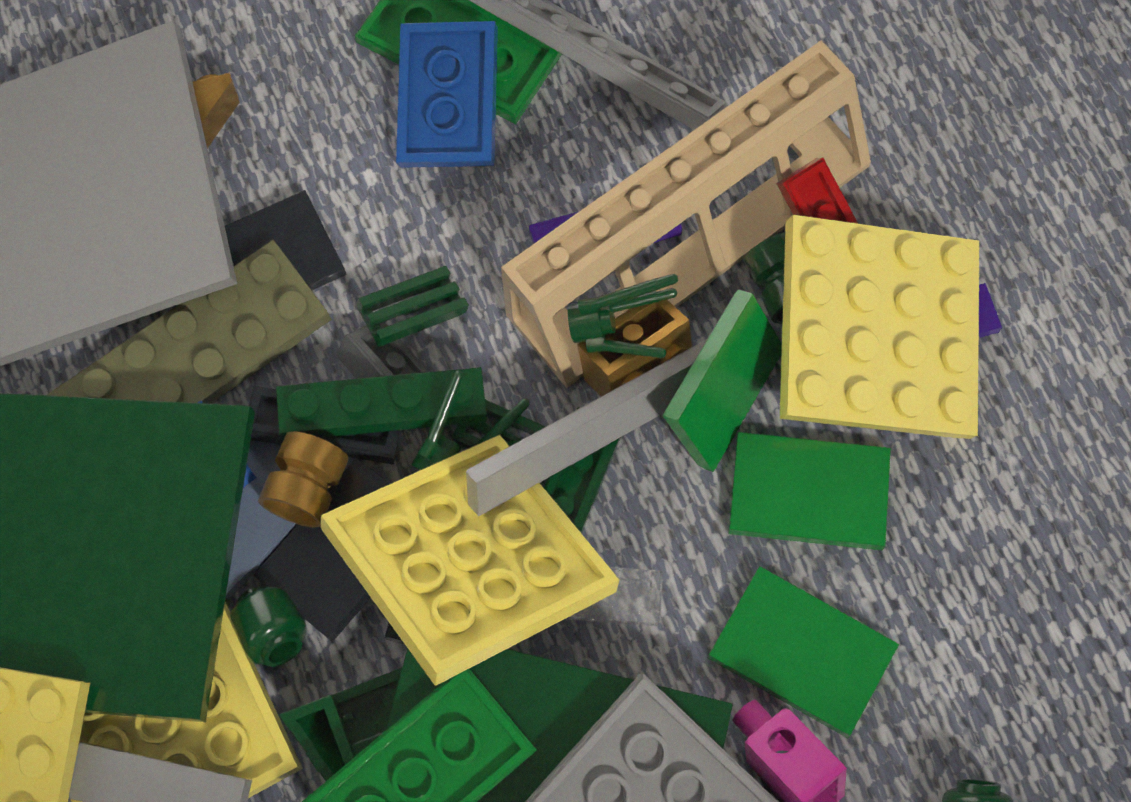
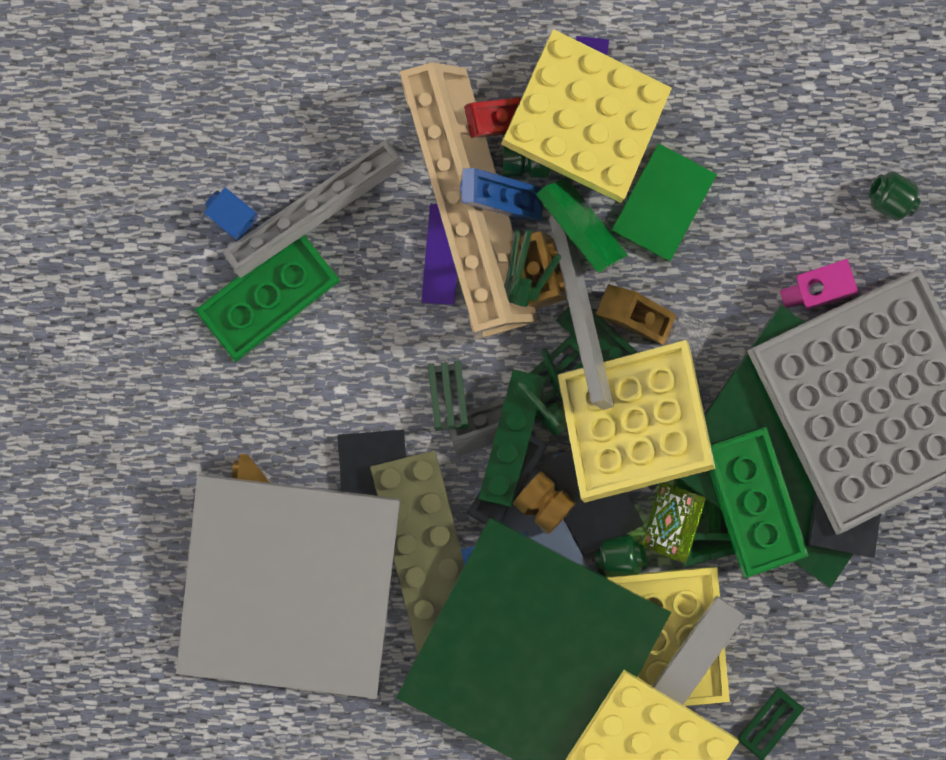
camera: 65 degrees left, 15 degrees up
(342, 675) = (673, 521): none -> clear neon green tile
(447, 94) = (310, 318): blue plate -> none
(632, 509) = (636, 313): none -> pearl gold slope
(712, 233) = (500, 194): none -> blue plate
(803, 652) = (758, 250): green tile -> none

